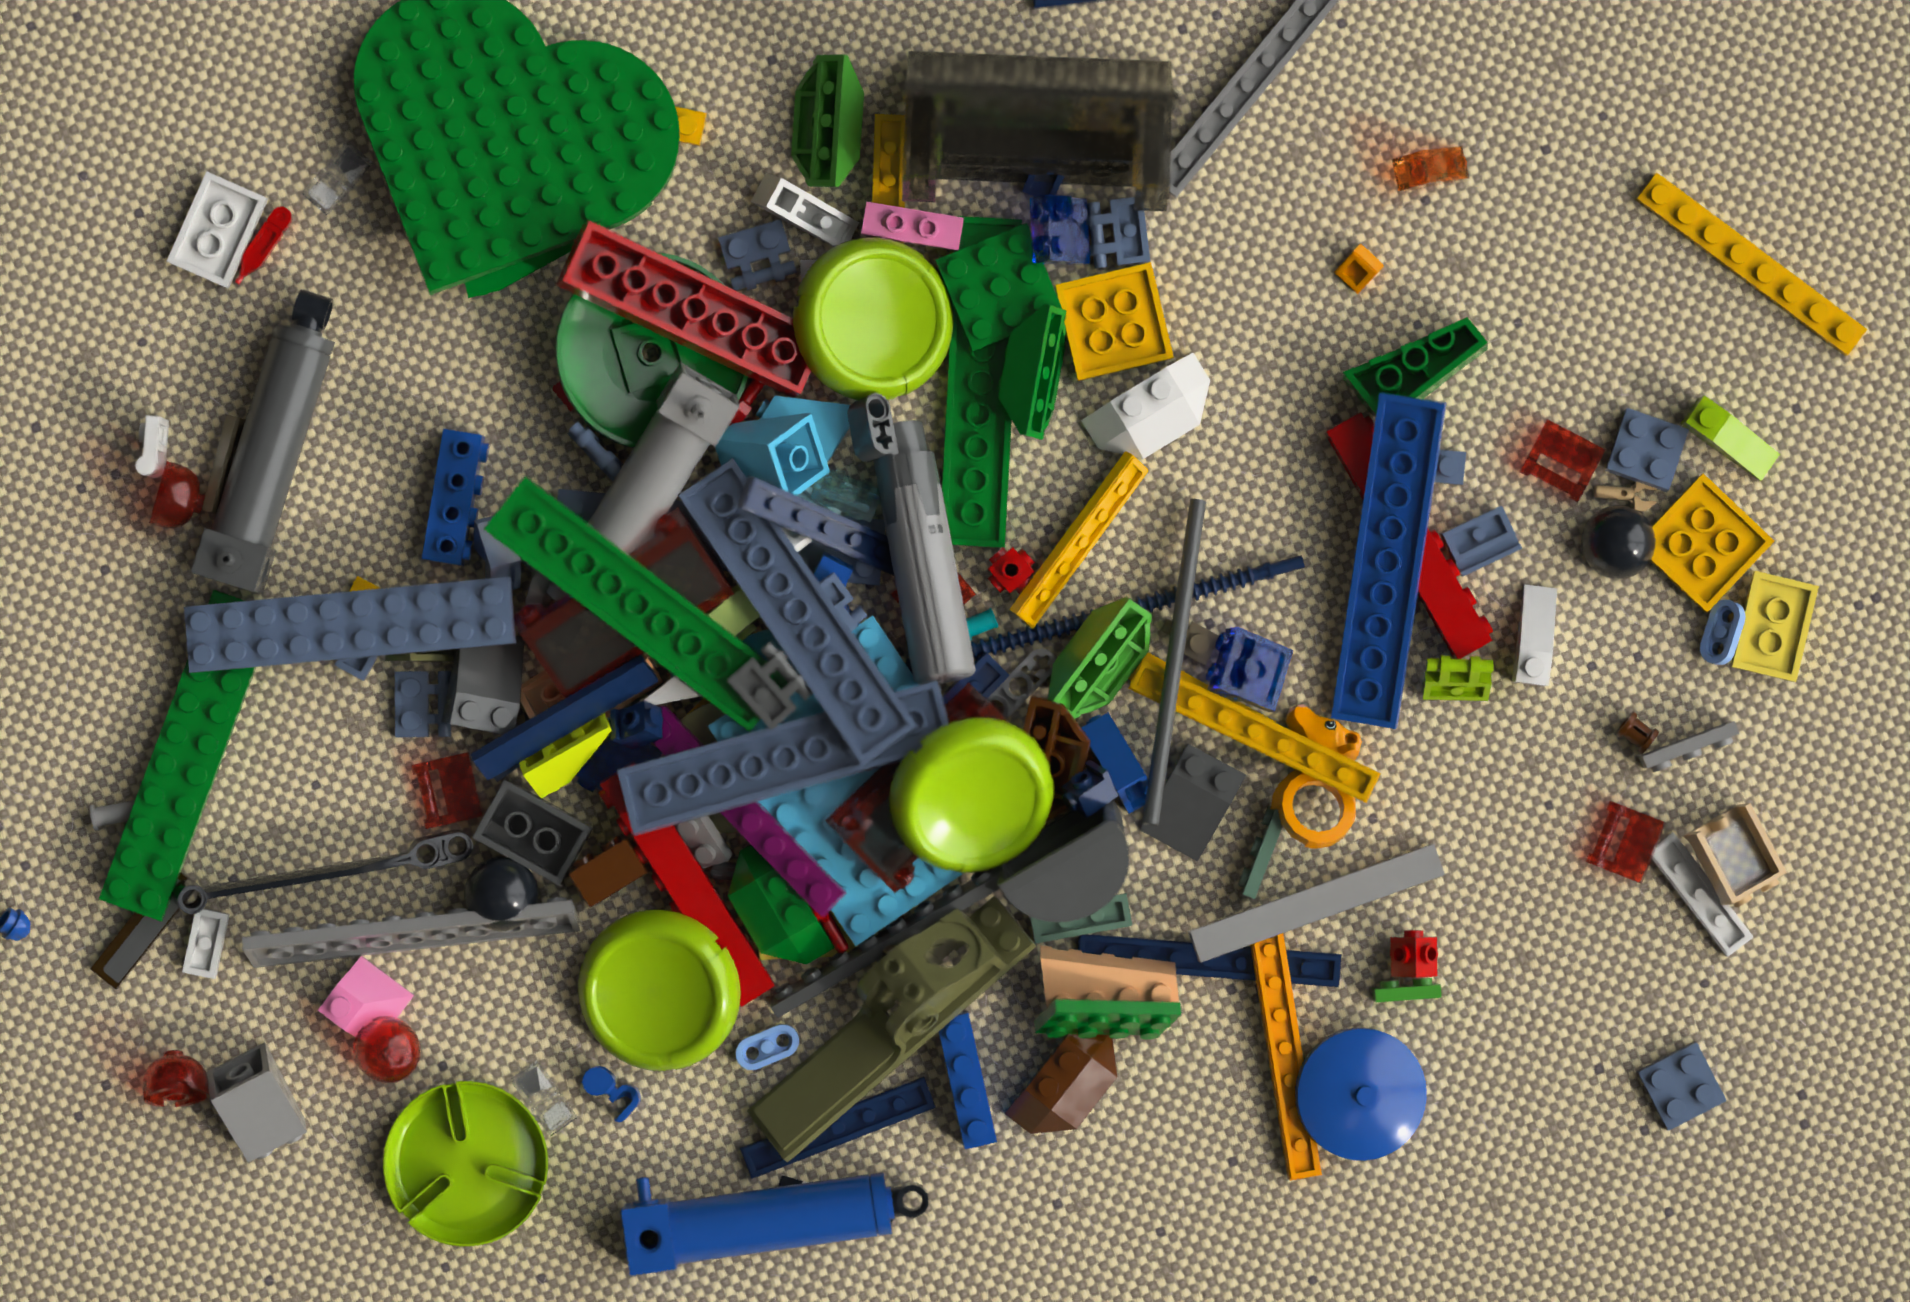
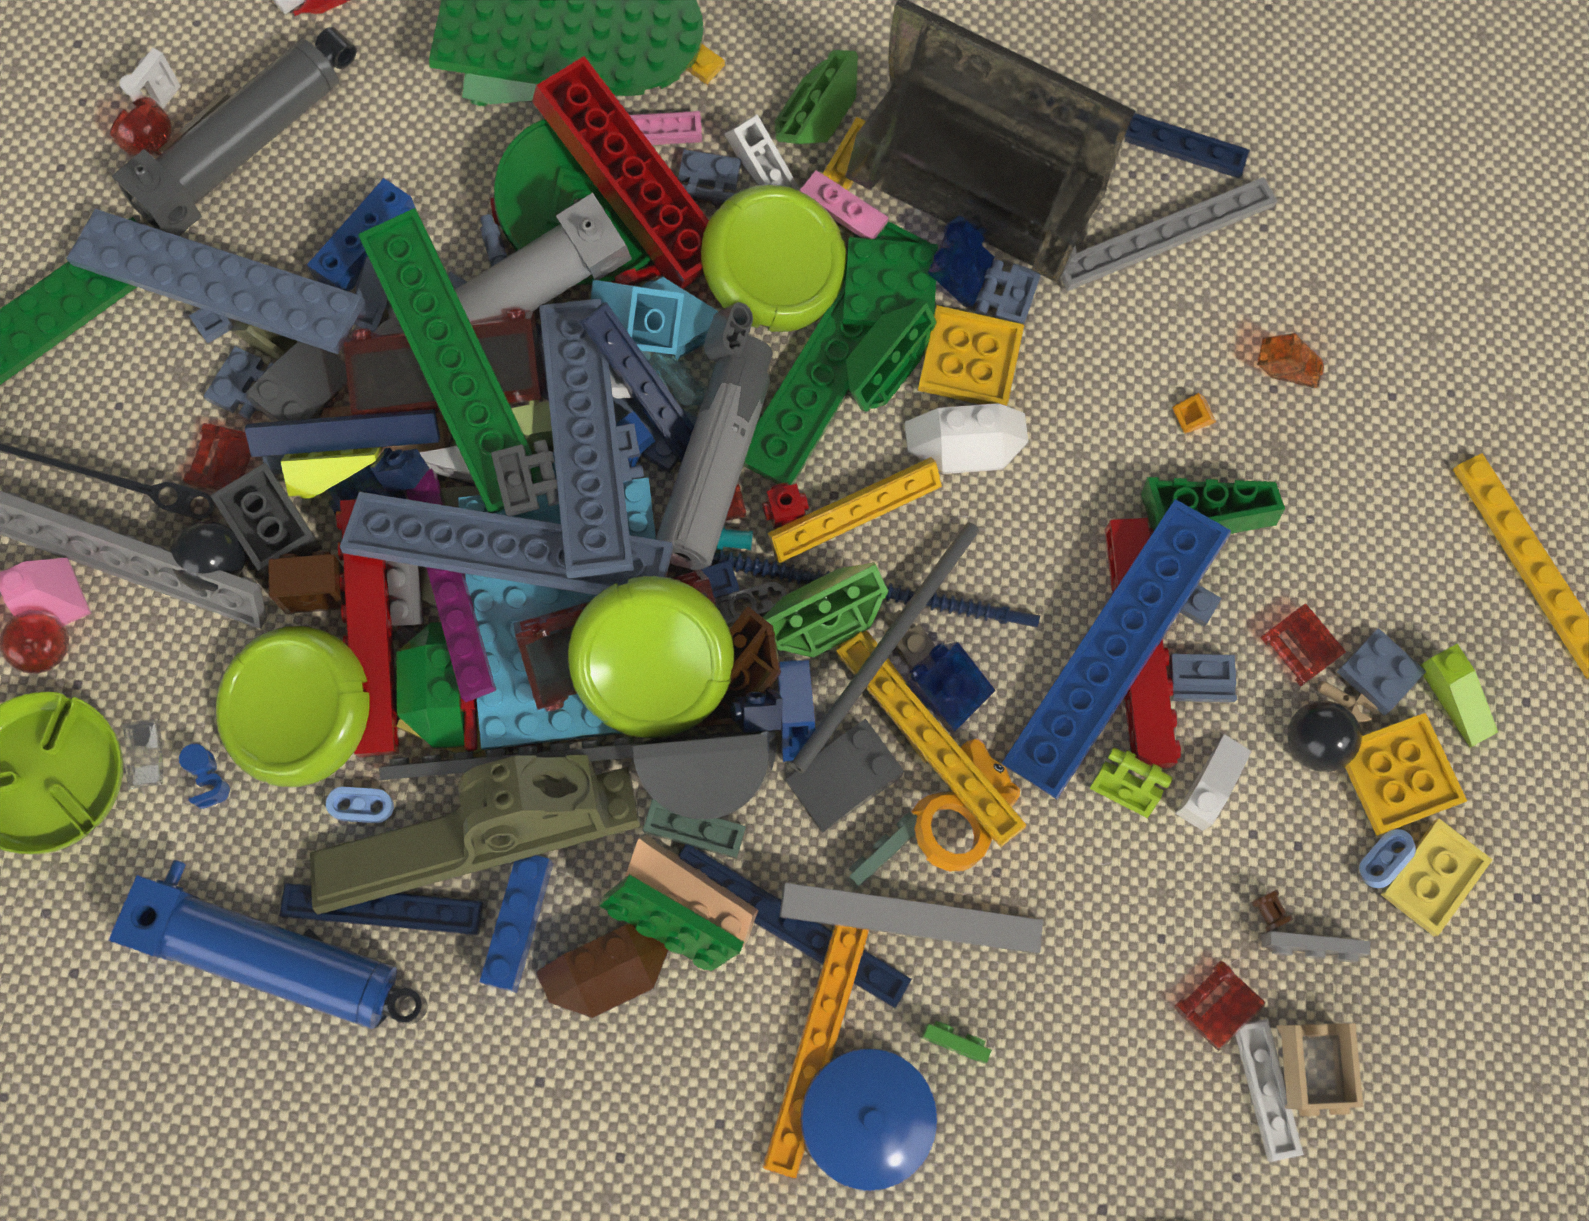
camera: 25 degrees right, 15 degrees down
(683, 224) = (670, 127): none -> bright pink plate
(1413, 955) = (978, 1011): red brick -> none

